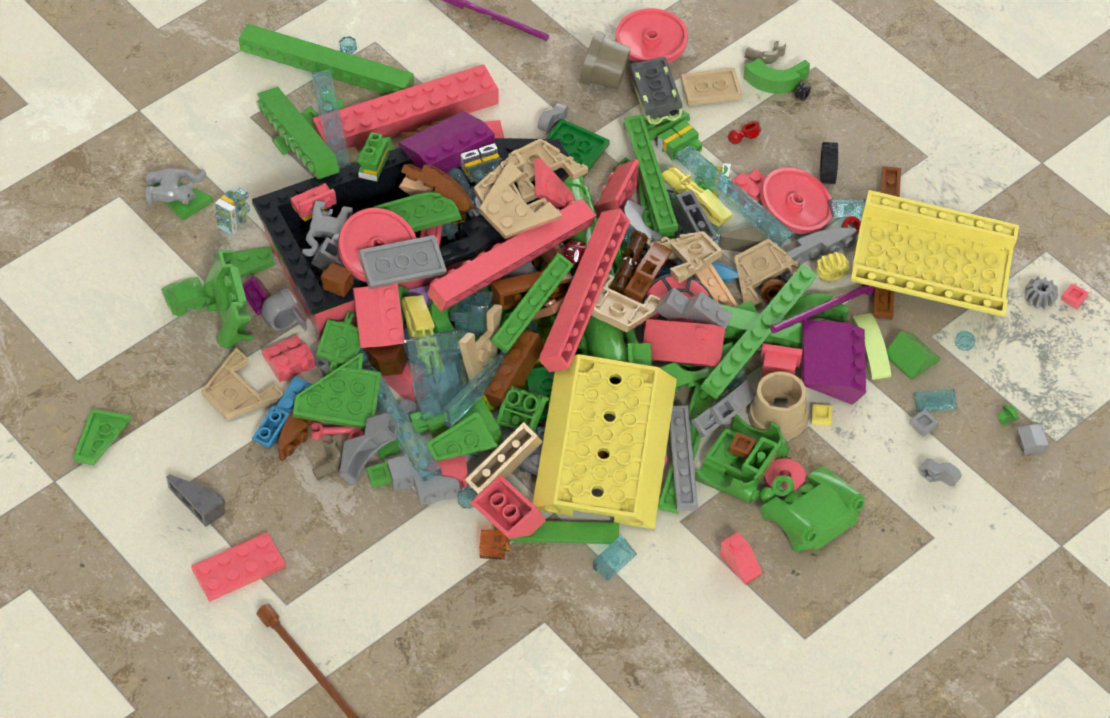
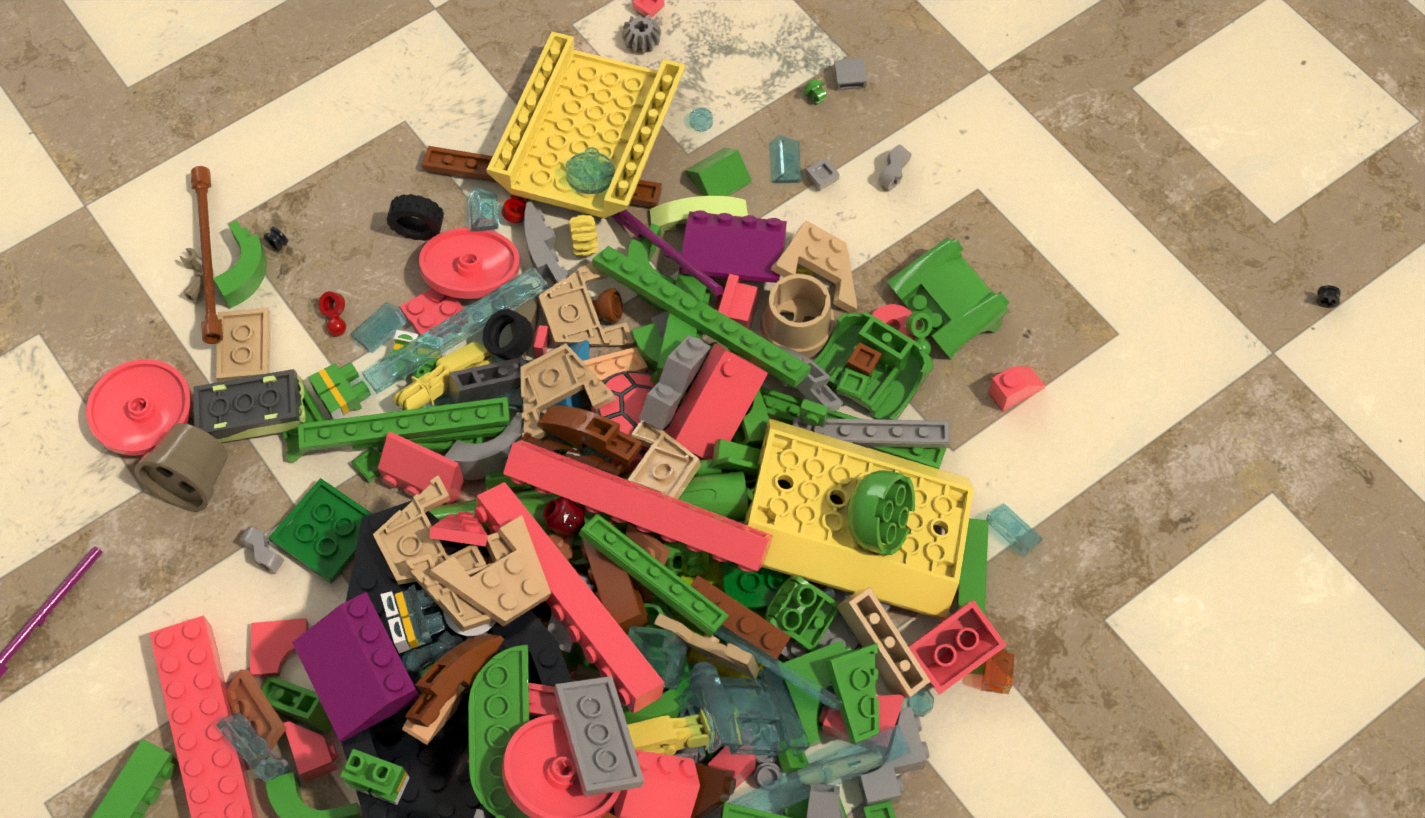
camera: 85 degrees left, 10 degrees up
(408, 123) = (252, 747): none -> clear light blue plate
(600, 428) = (881, 511): none -> bright green cylinder
(687, 410) = (813, 413): none -> bright green plate
(716, 61) = (212, 326): none -> dark orange hose
(721, 441) = (852, 384): none -> bright green tile
(732, 223) = (493, 330): none -> black tyre
(733, 250) = (541, 341): none -> coral tile
(739, 161) = (379, 327): none -> clear light blue slope
(841, 417) = (823, 255): none -> tan wing
(886, 257) = (590, 171): none -> clear light blue tile

